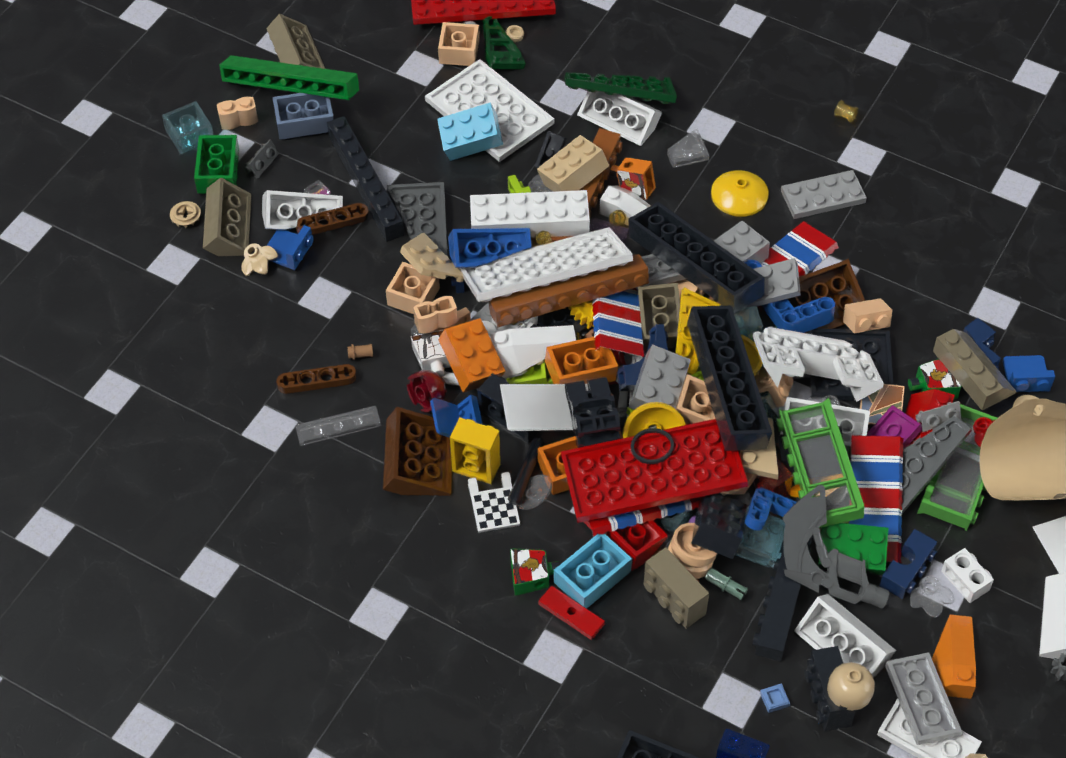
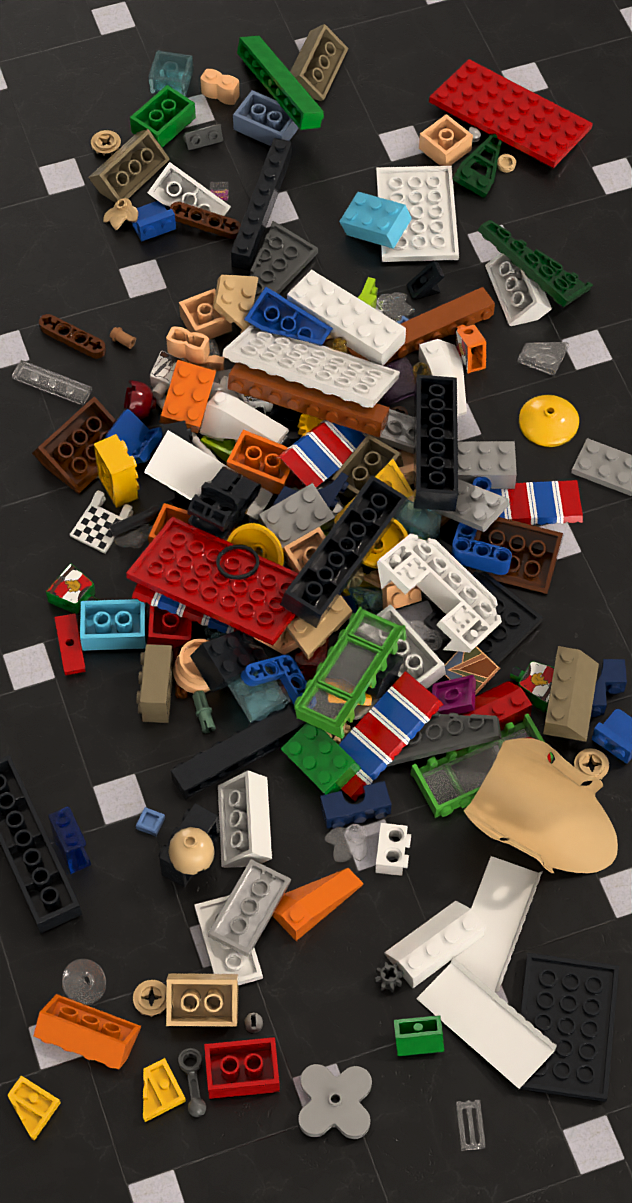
camera: 40 degrees right, 5 degrees up
(573, 166) = (421, 303): tan brick -> none
(803, 522) = (283, 703): dark grey piece -> none
(867, 315) = (535, 591): light nougat brick -> none
(935, 417) = (487, 706): light grey hinge -> none

